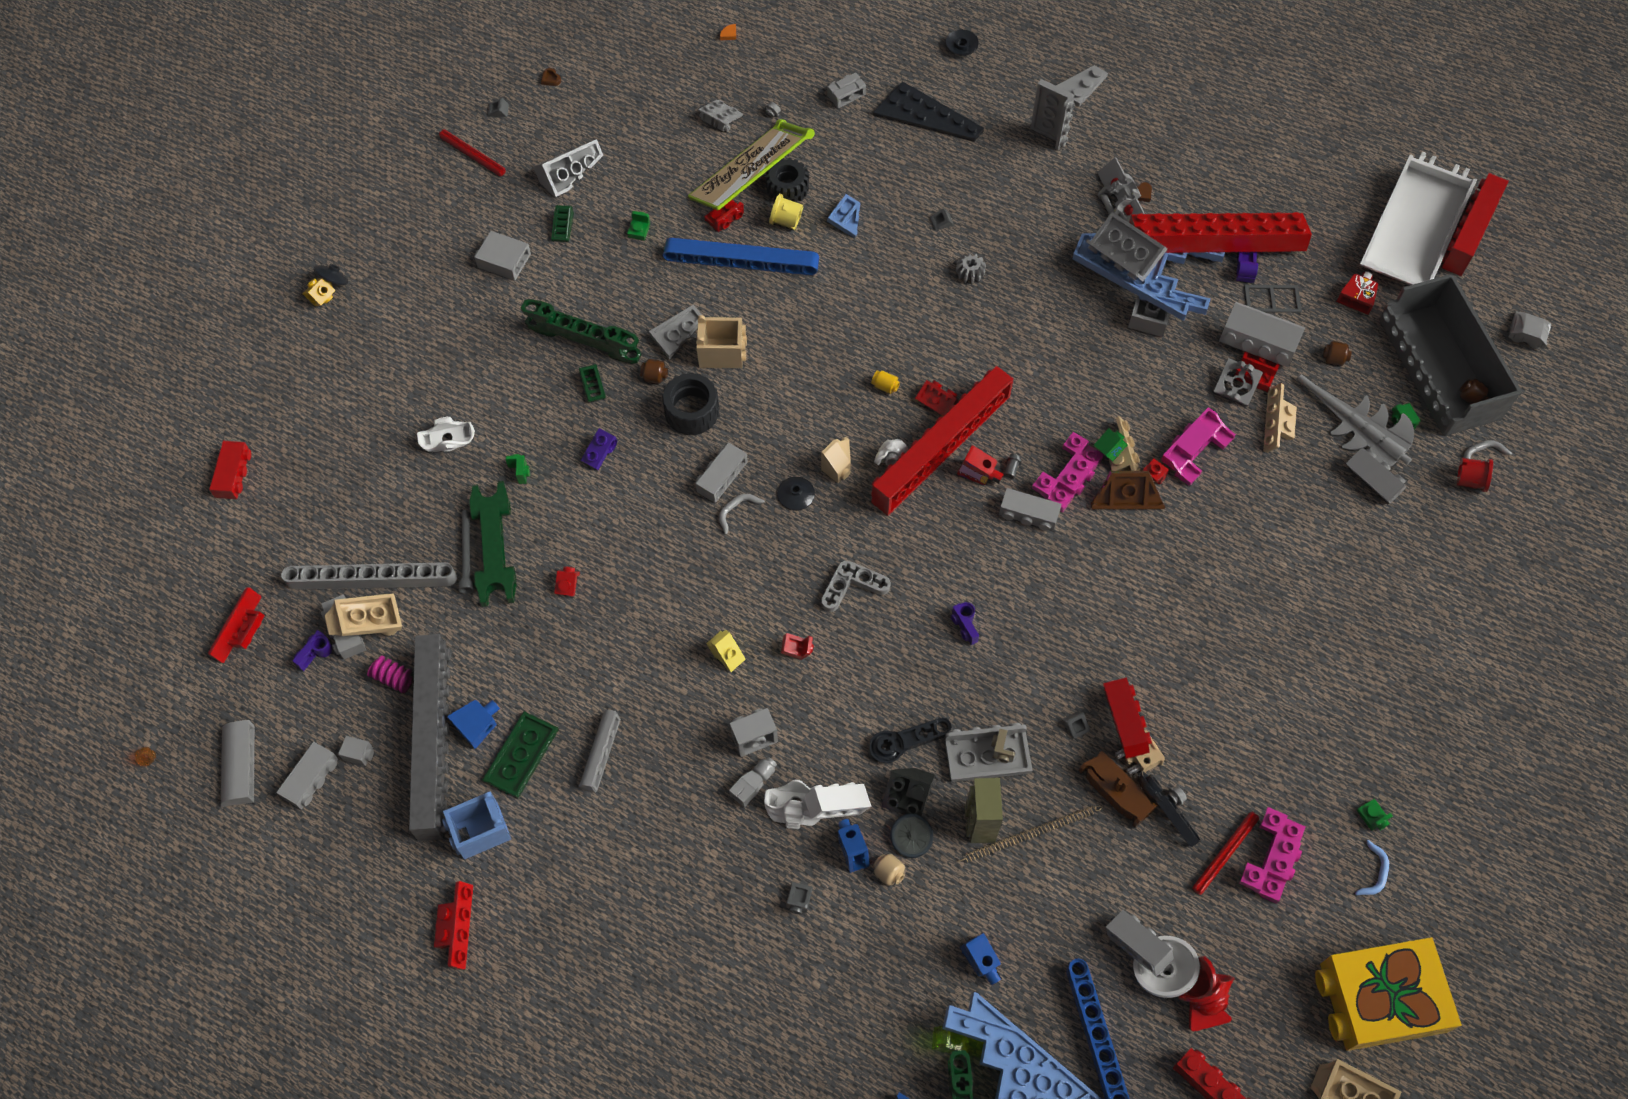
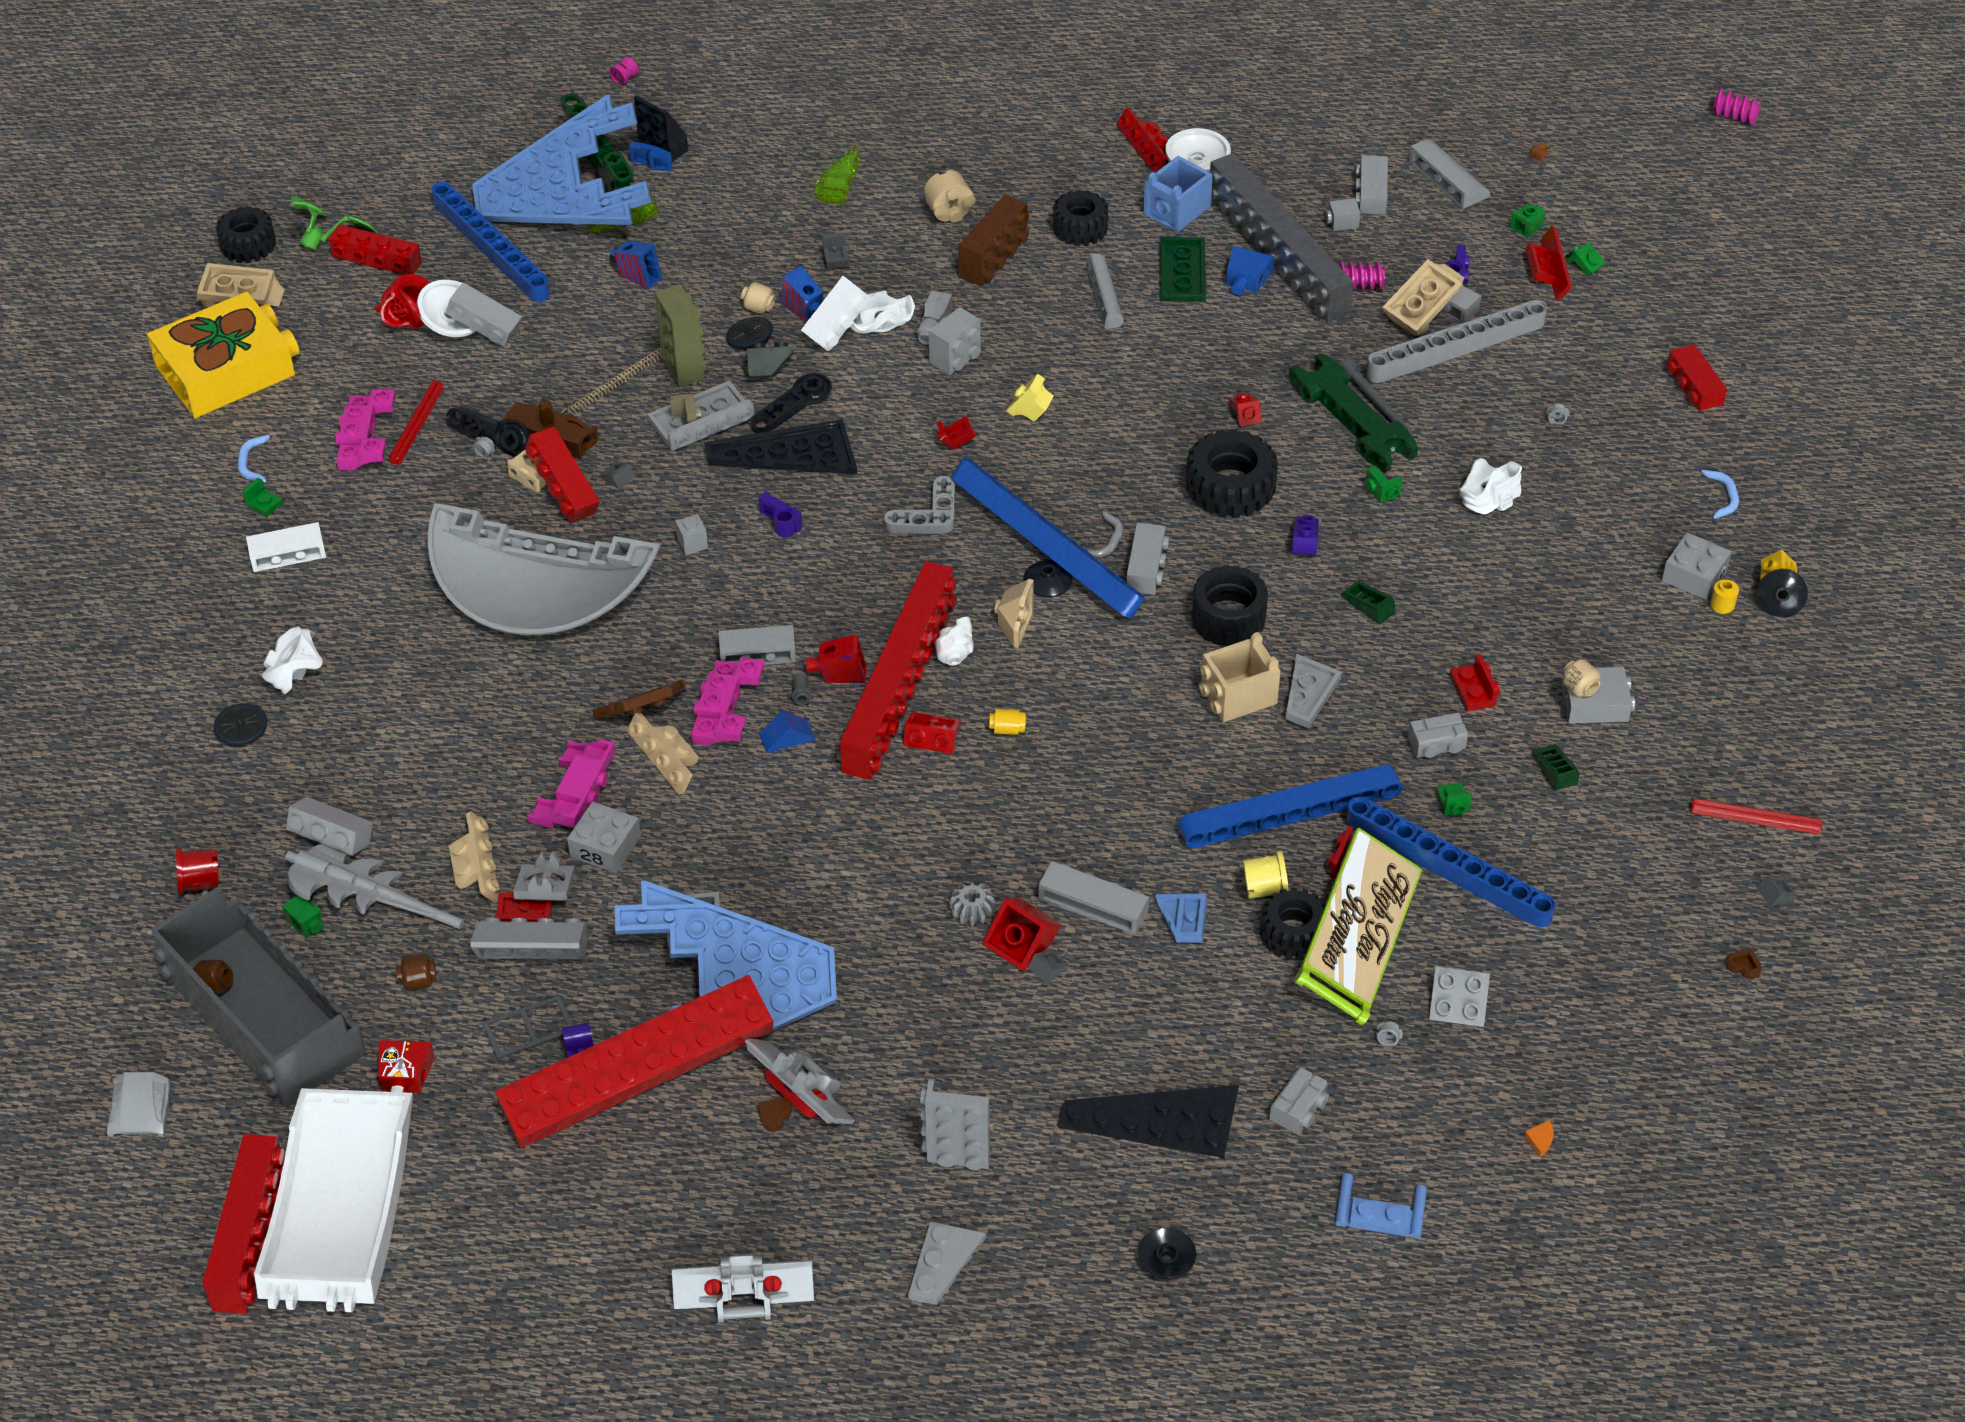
camera: 155 degrees right, 15 degrees down
(209, 621) = (1586, 258): none -> green bracket
(222, 683) = (1530, 215): none -> green brick
(289, 372) = (1731, 490): none -> light blue animal
(350, 482) = (1562, 415): none -> light grey plate
(365, 318) = (1696, 565): none -> light grey brick
(367, 288) = (1724, 596): none -> yellow brick
(416, 868) = (1197, 146): none -> white dish
(510, 250) = (1581, 678): none -> tan head
(553, 323) = (1465, 631): dark green piece -> none
(562, 170) = (1615, 827): light grey wedge -> none
(569, 295) = (1475, 685): none -> red bracket
(574, 858) = (1080, 217): none -> black tyre
(619, 266) = (1437, 735): none -> light grey brick
(619, 492) = (1231, 452): none -> black tyre
(653, 371) = (1303, 634): reddish brown head -> none
(662, 837) = (993, 240): none -> reddish brown piece
(671, 186) = (1451, 862): none -> blue beam
(671, 913) = (949, 196): none -> tan brick
(755, 995) = (838, 179): none -> clear neon green slope
(783, 519) = (1048, 538): none -> blue beam
(839, 26) = (1380, 1215): none -> medium blue plate
(895, 243) = (1093, 897): none -> light grey brick
(926, 687) = (801, 448): none -> black wing
(948, 239) = (1020, 932): none -> red slope
(1035, 434) = (786, 731): none -> blue slope
(1041, 628) = (691, 534): none -> light grey brick
(1111, 444) = (684, 731): green brick -> none
(1126, 247) = (762, 950): light grey bracket -> none
(1157, 471) = (616, 730): red bracket -> none
(1176, 630) = (530, 579): none -> light grey brick
(1189, 397) = (604, 837): none -> light grey brick
(1205, 102) = (742, 1275): none -> piece
(1364, 750) = (285, 547): none -> white brick
(1380, 626) = (291, 658): none -> white piece
(1425, 595) = (240, 724): none -> pearl dark grey wheel

